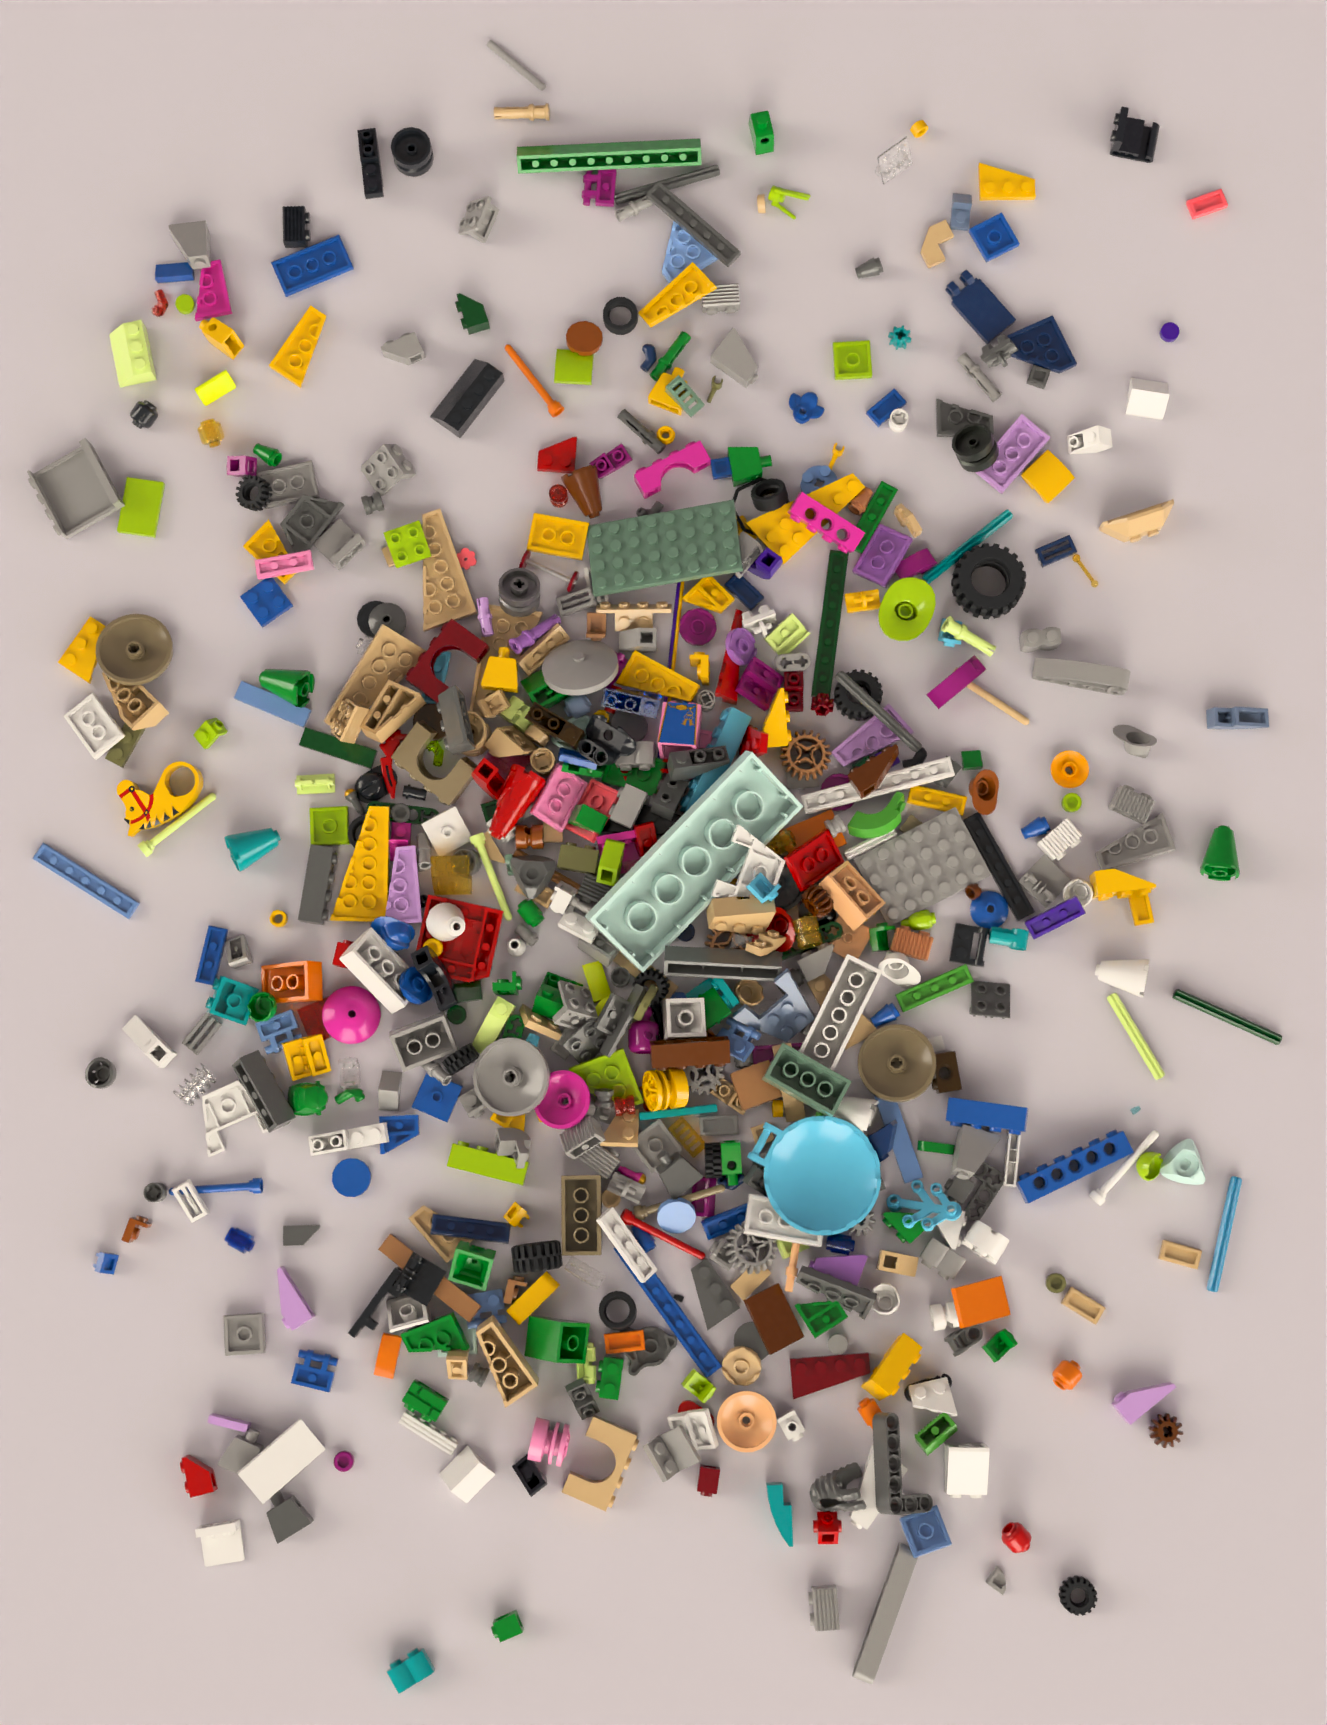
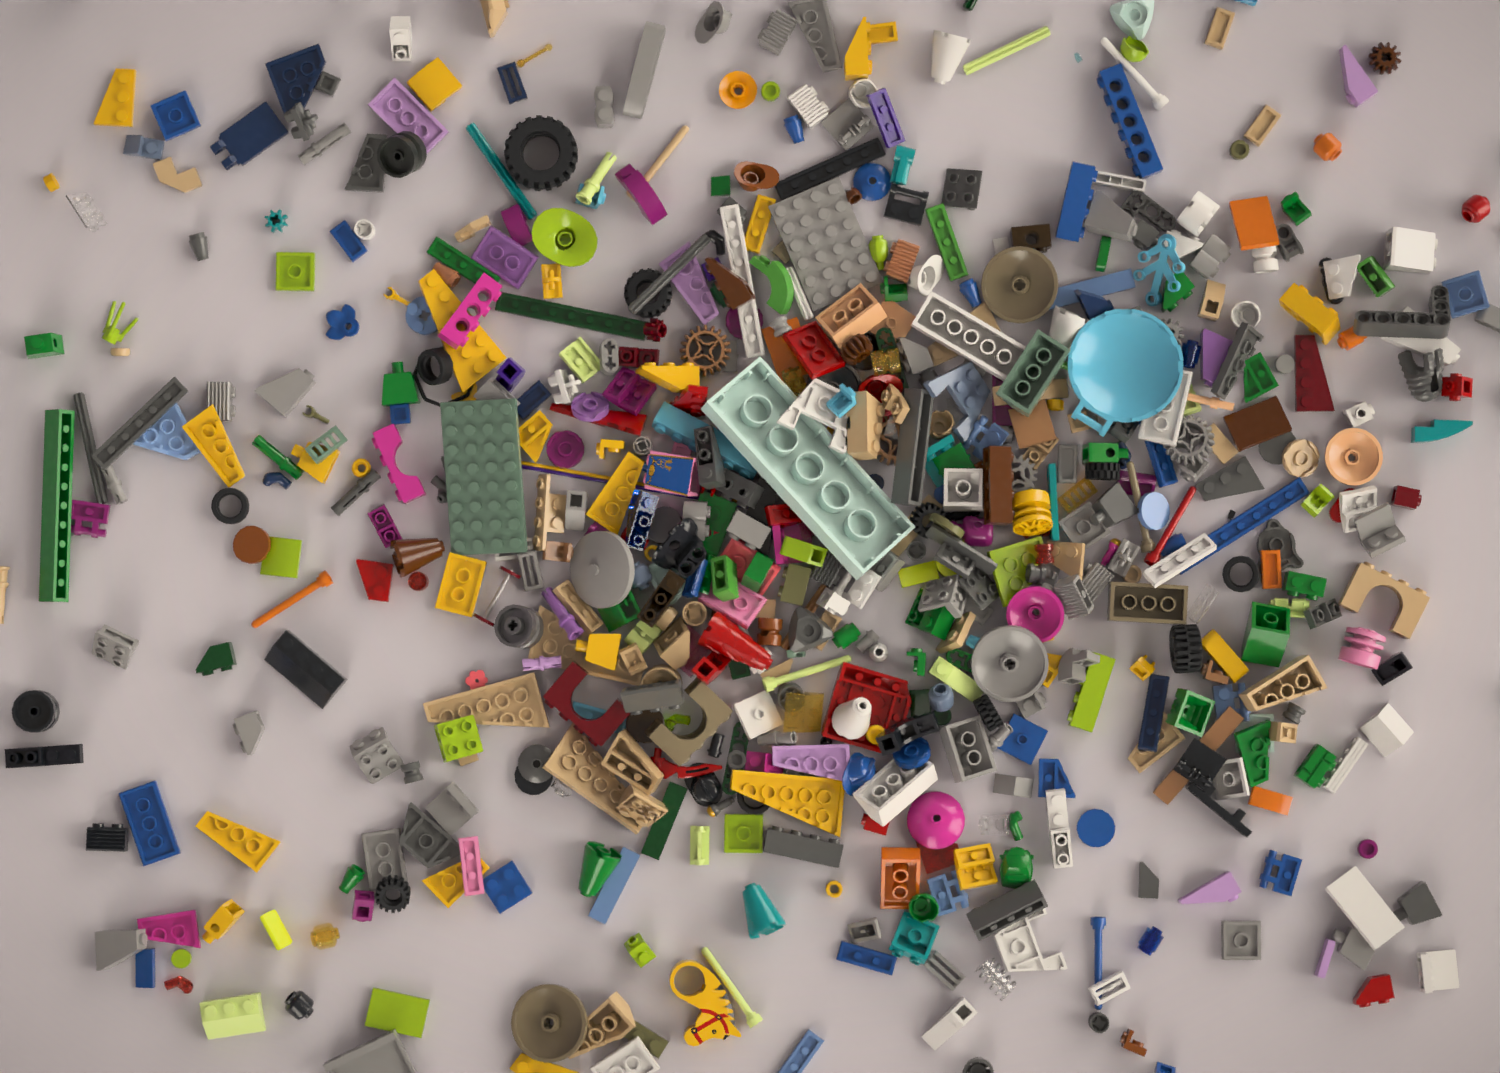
camera: 85 degrees left, 5 degrees up
(473, 1010) = (941, 697): none -> sand blue head
(578, 786) = (724, 578): none -> bright green brick

